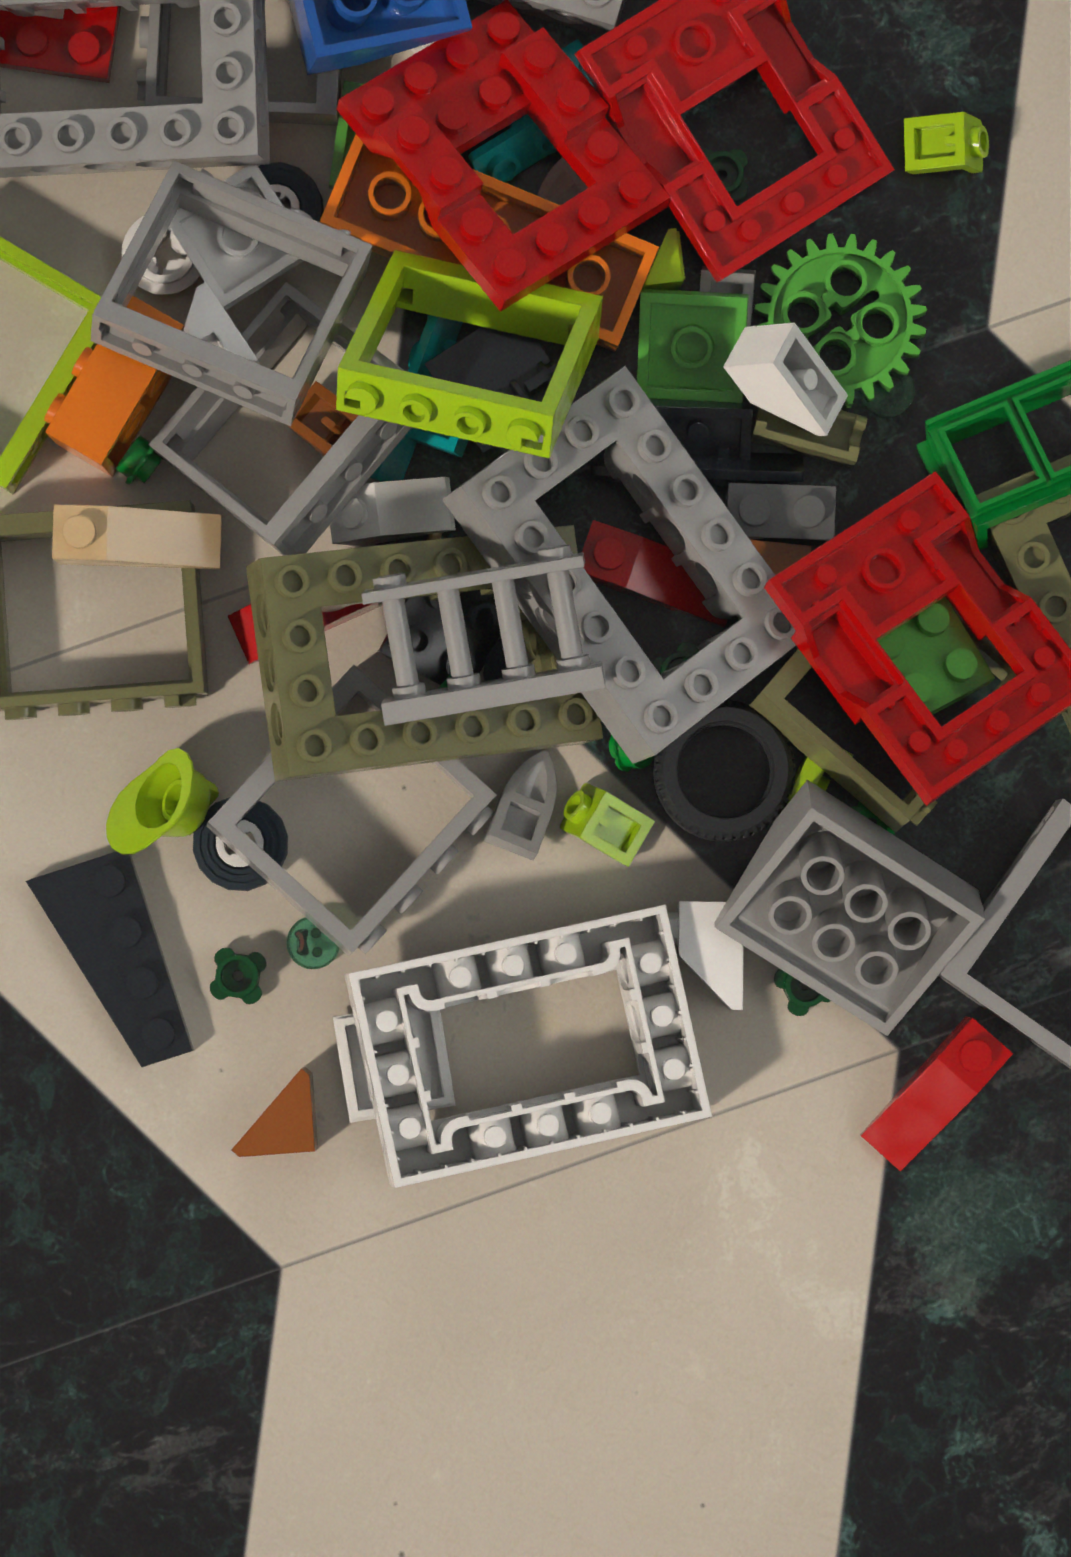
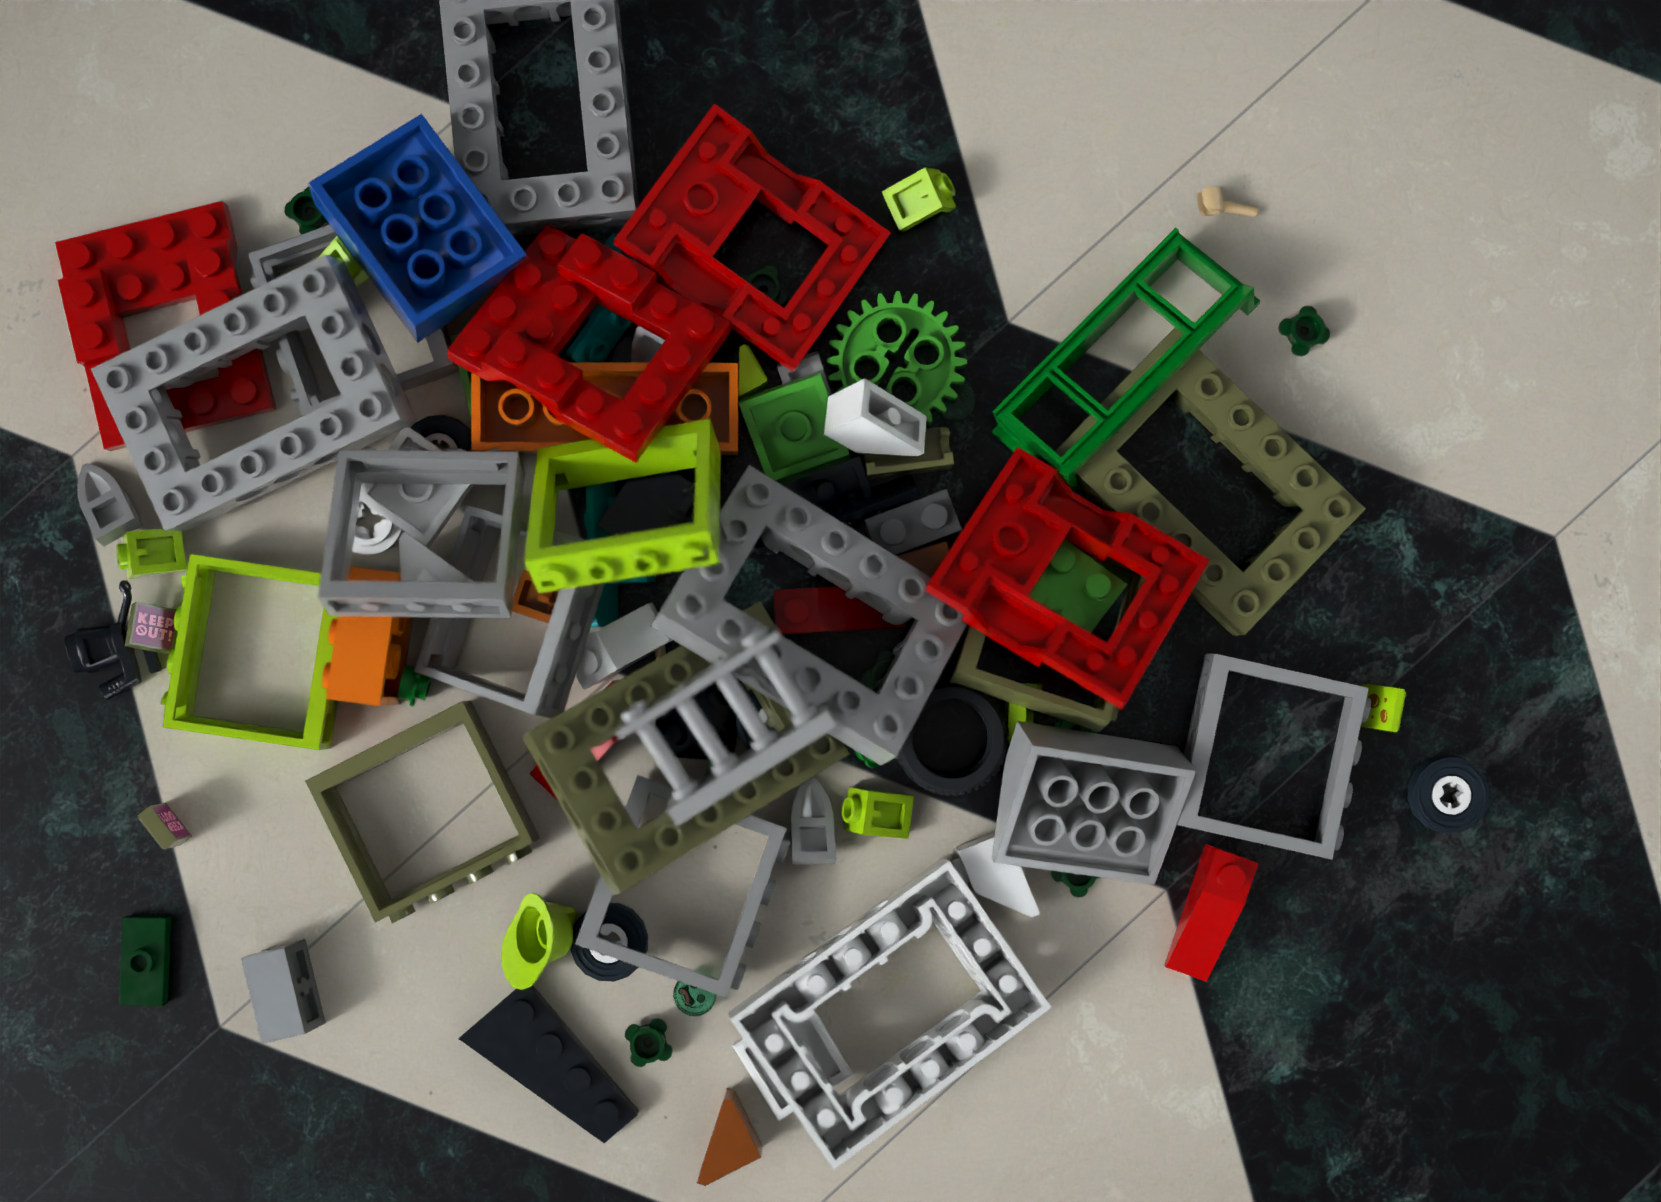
camera: 25 degrees left, 0 degrees up
(135, 537) = (430, 748): tan slope -> none

